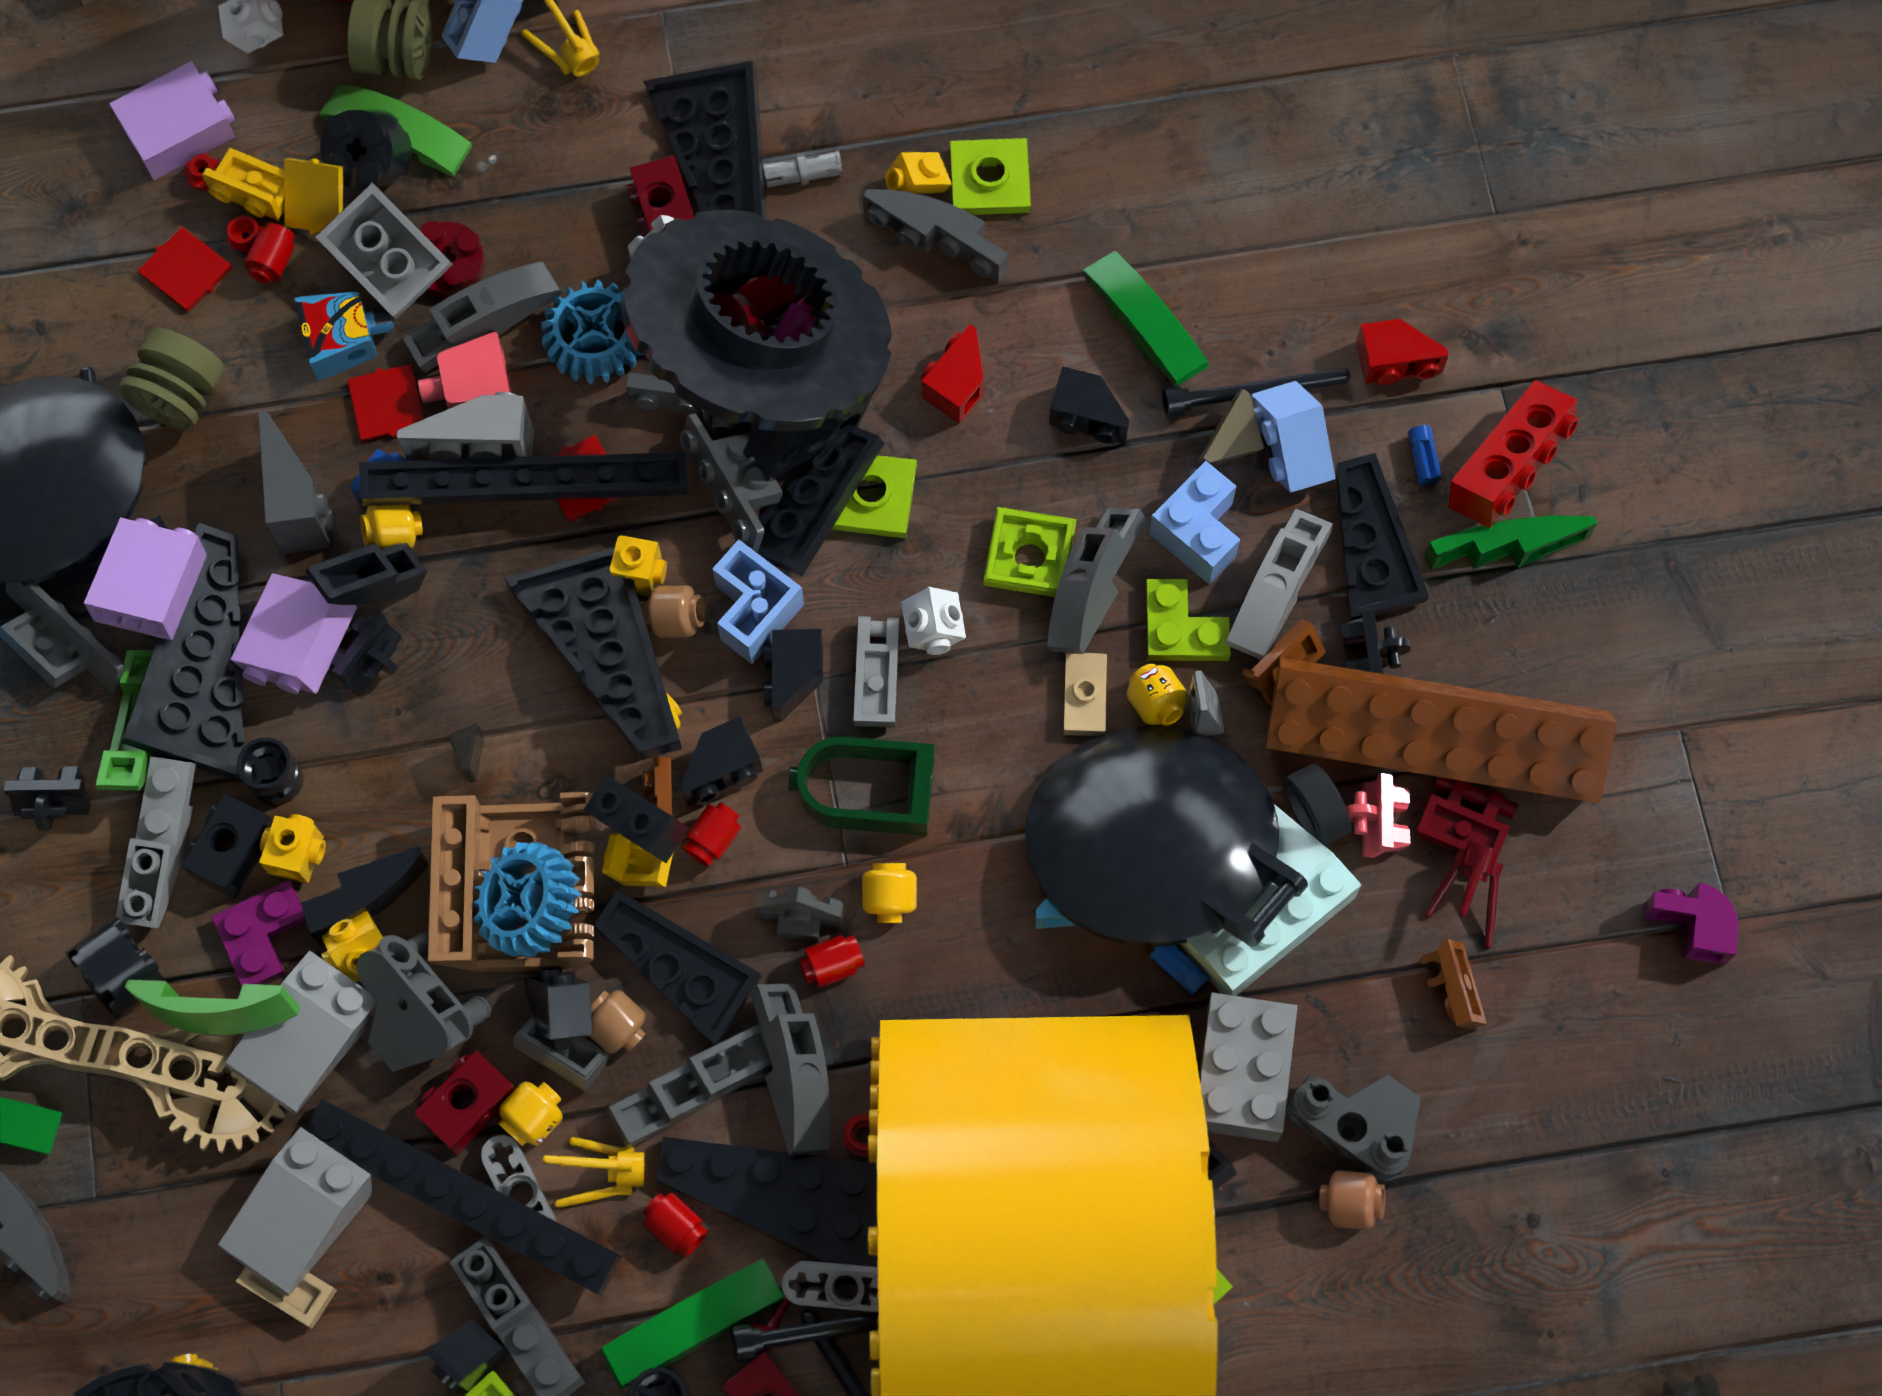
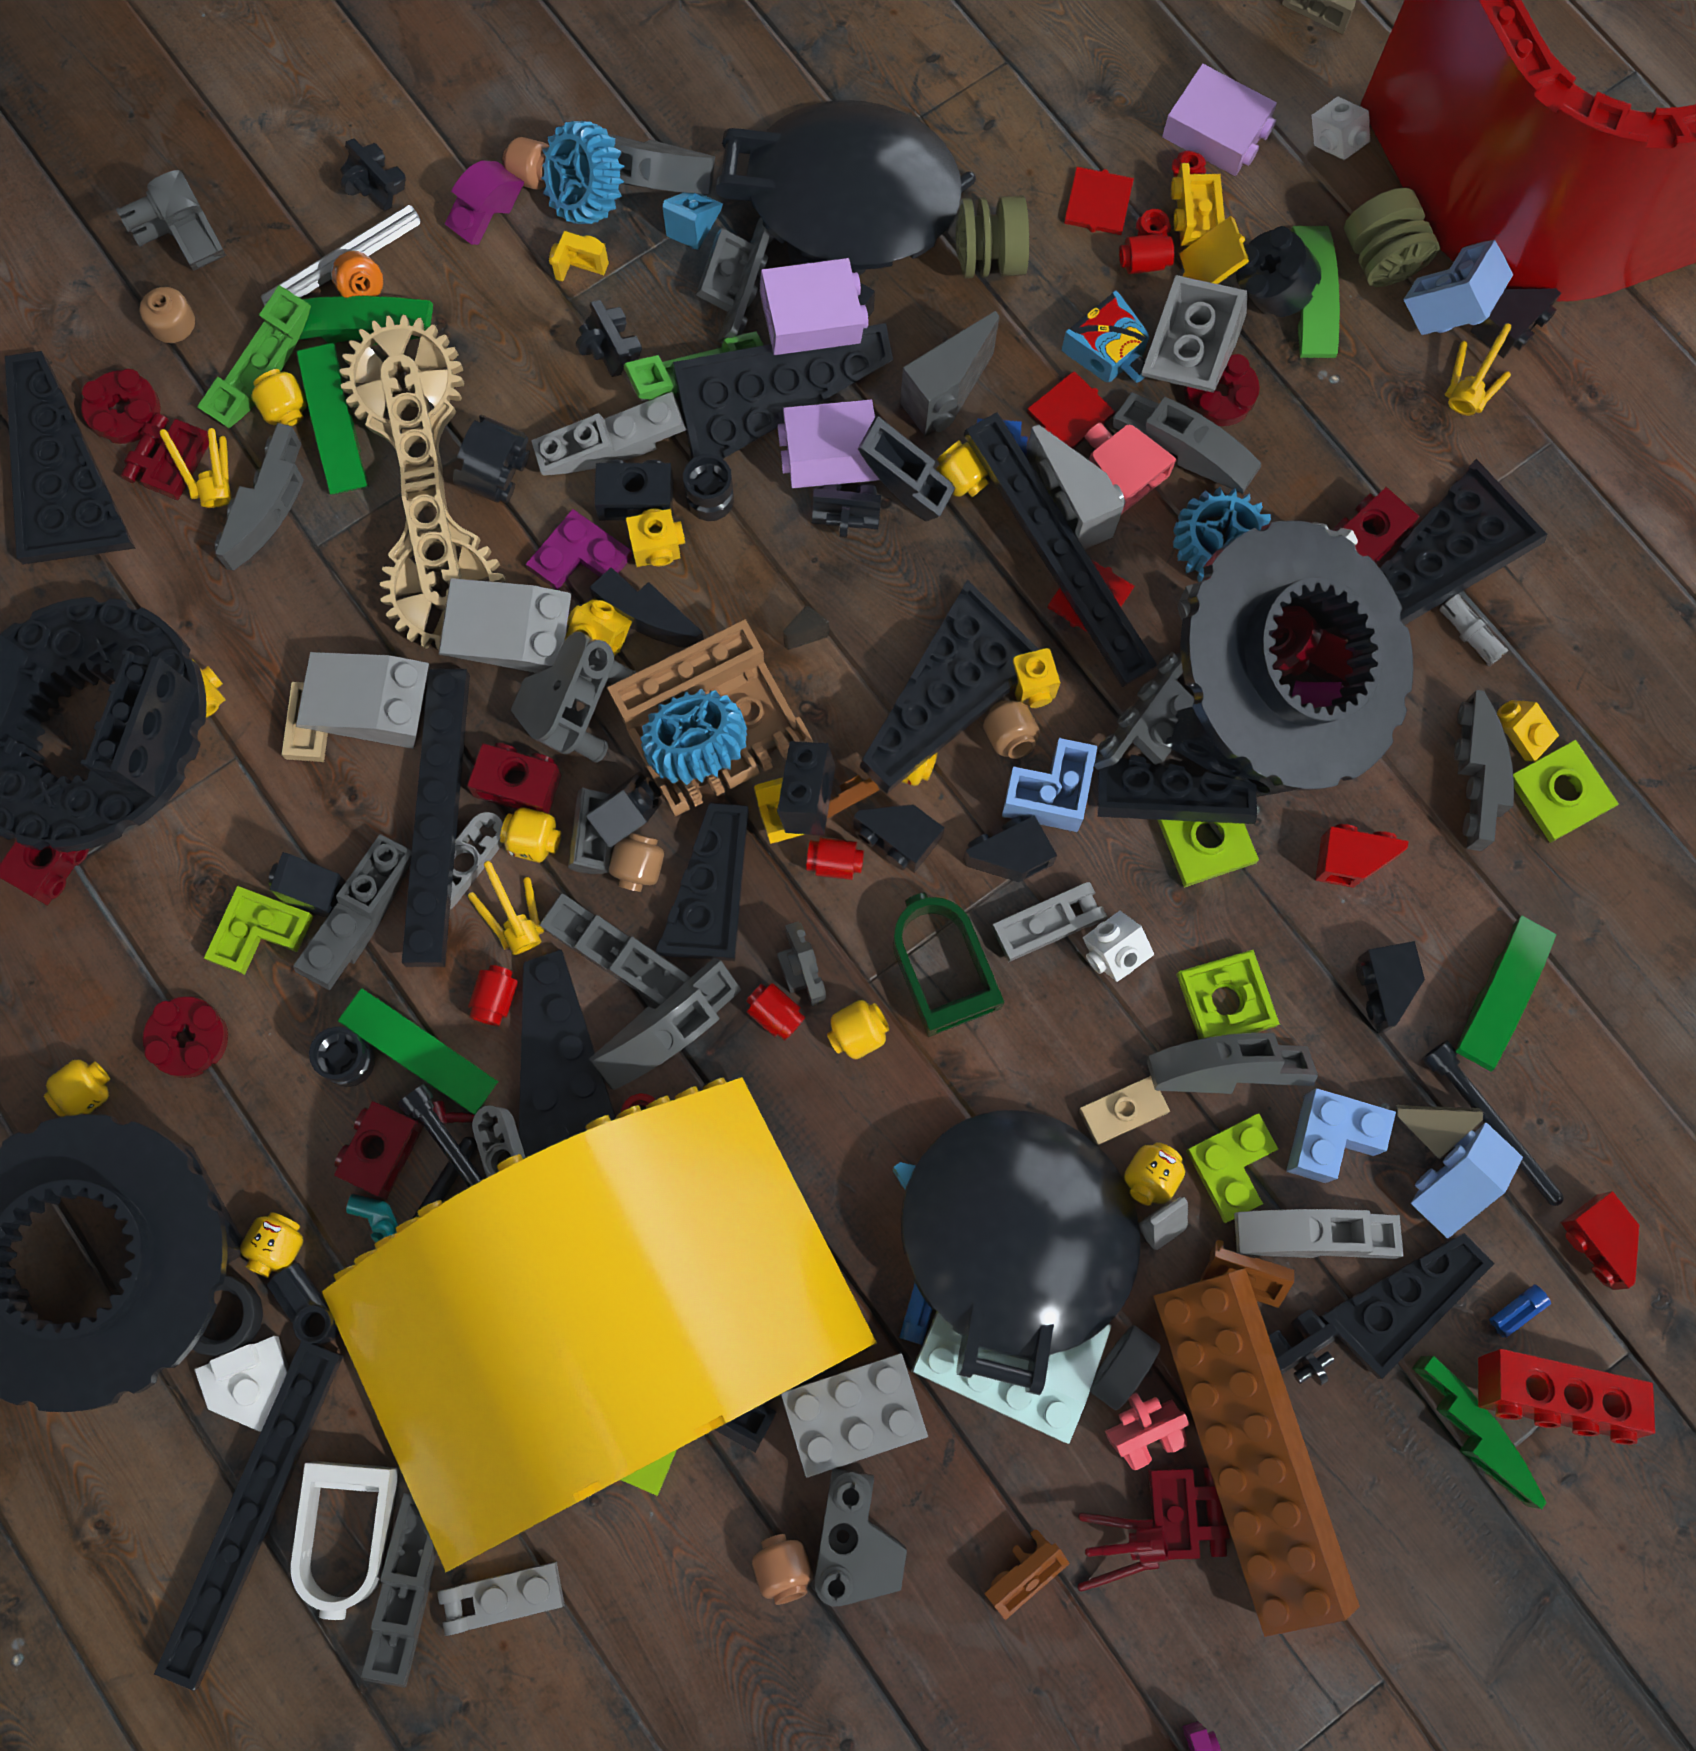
camera: 60 degrees right, 5 degrees up
(253, 1010) = (493, 572): bright green slope -> none

